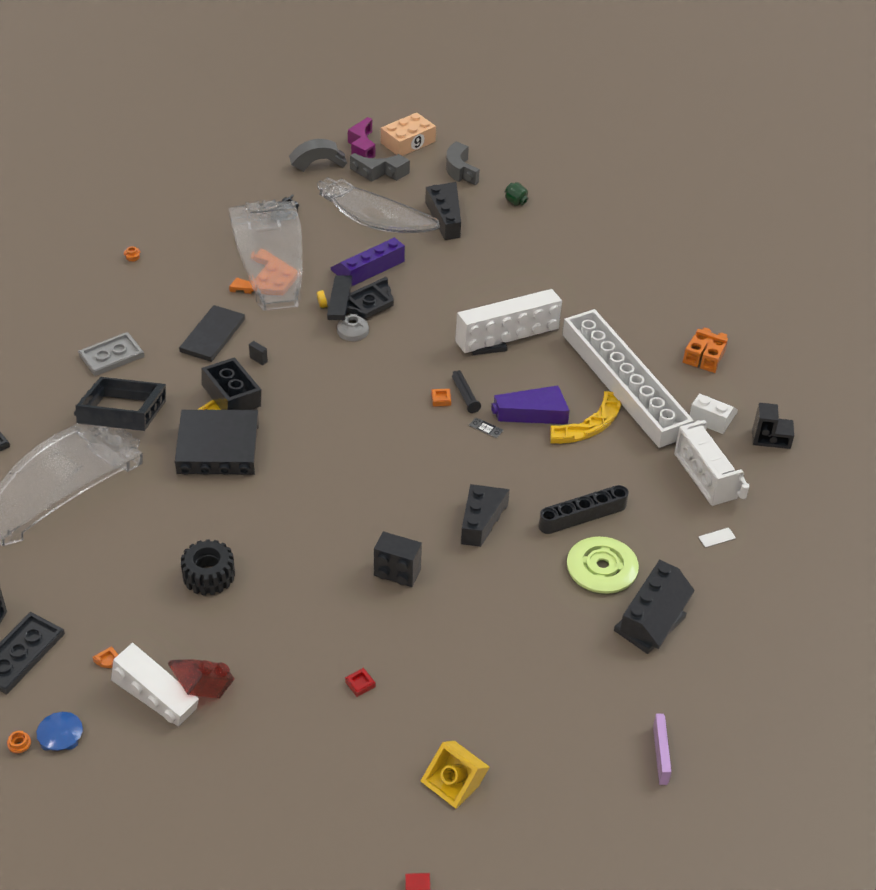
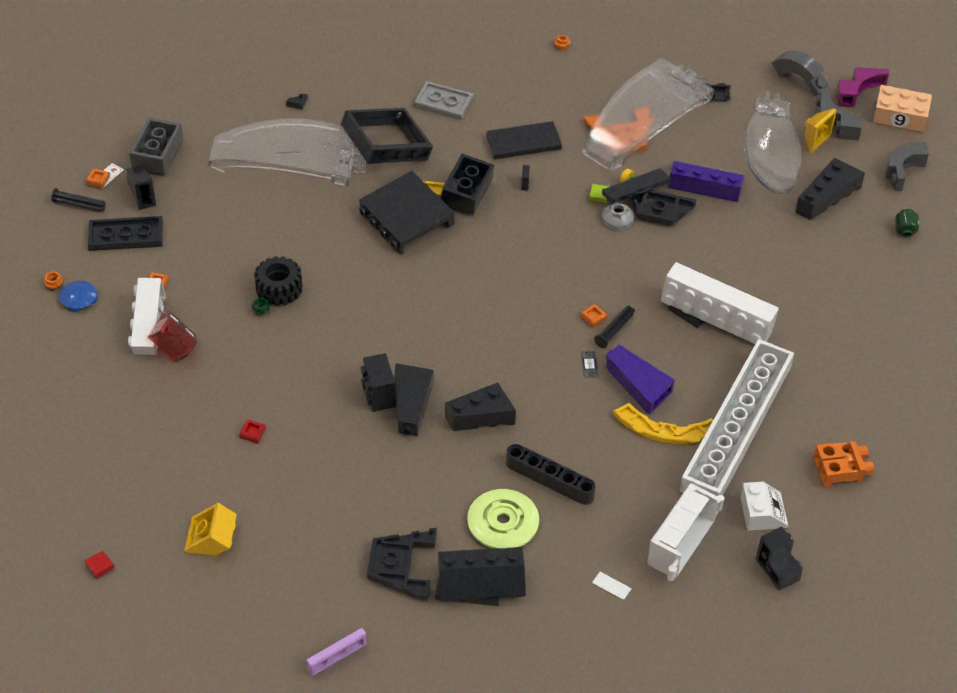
camera: 55 degrees right, 5 degrees up
(220, 597) = (260, 306): none -> dark green plate
(318, 324) = (596, 193): none -> lime tile
(384, 179) = (819, 128): none -> yellow slope
(437, 554) = (412, 396): none -> black slope
(593, 660) = (391, 561): none -> black wing

